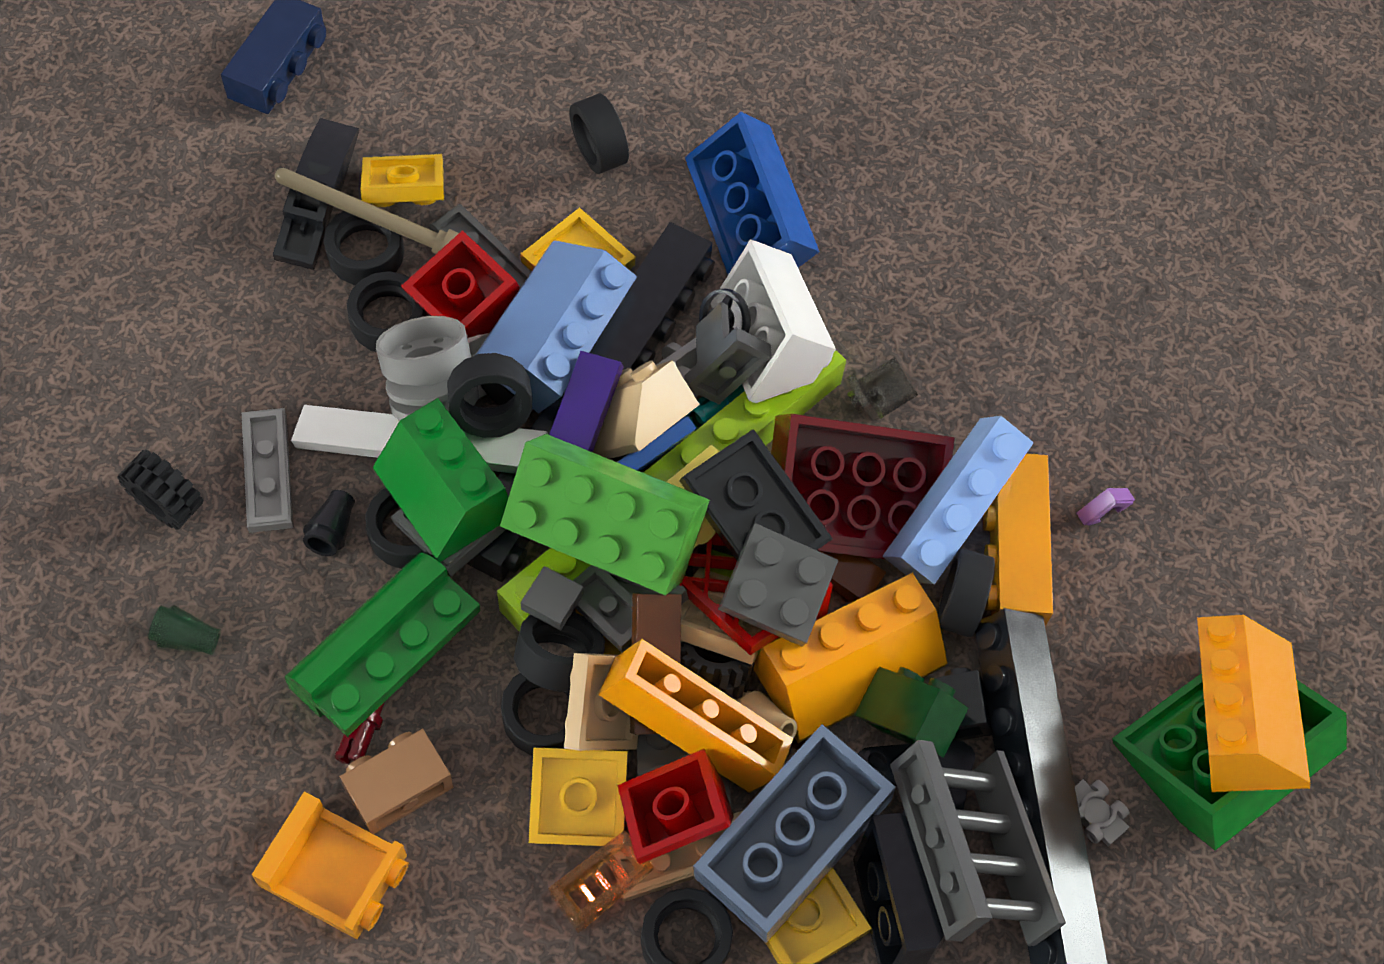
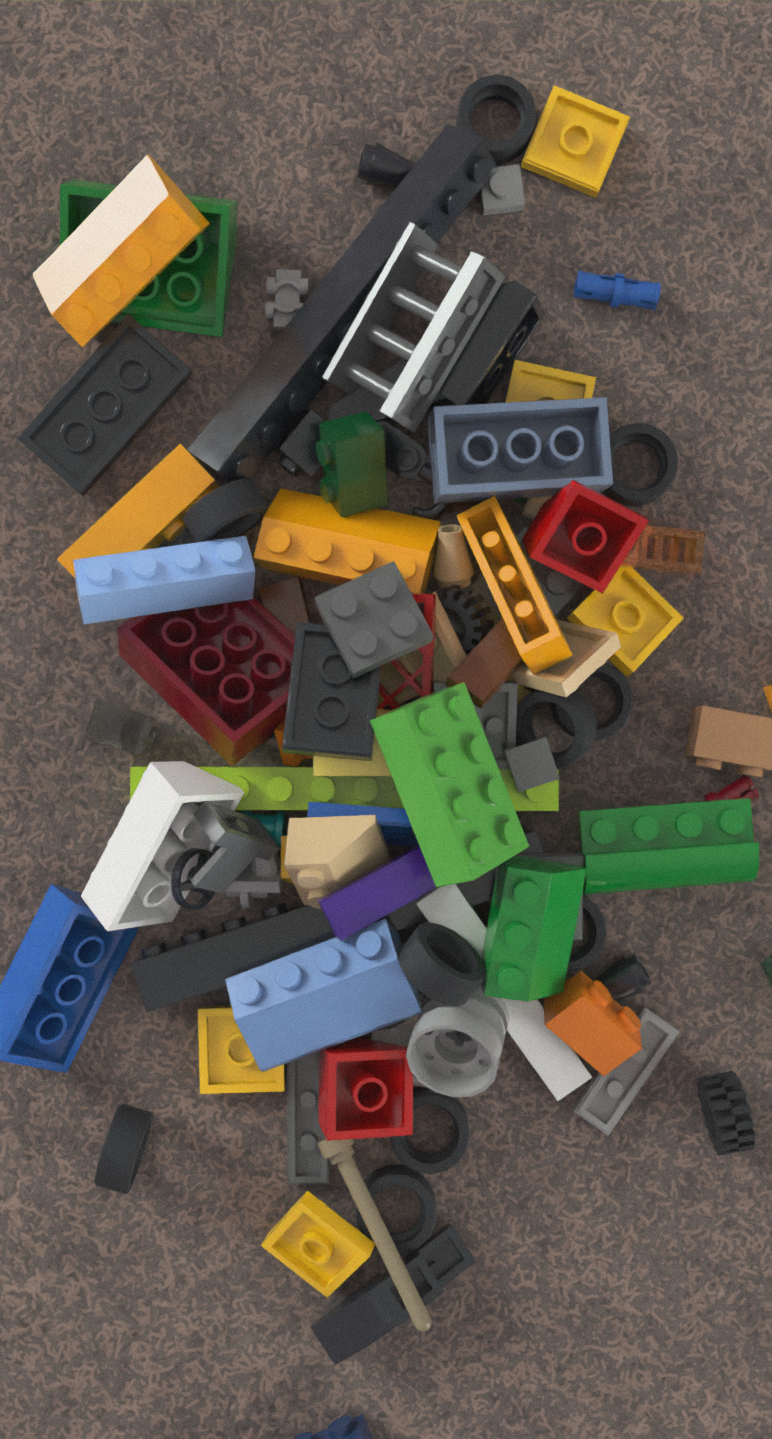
camera: 130 degrees left, 25 degrees up
(327, 468) = (593, 1023): none -> orange brick
(1110, 498) = (48, 492): medium lavender tile -> none
(1136, 604) = (105, 405): none -> black plate

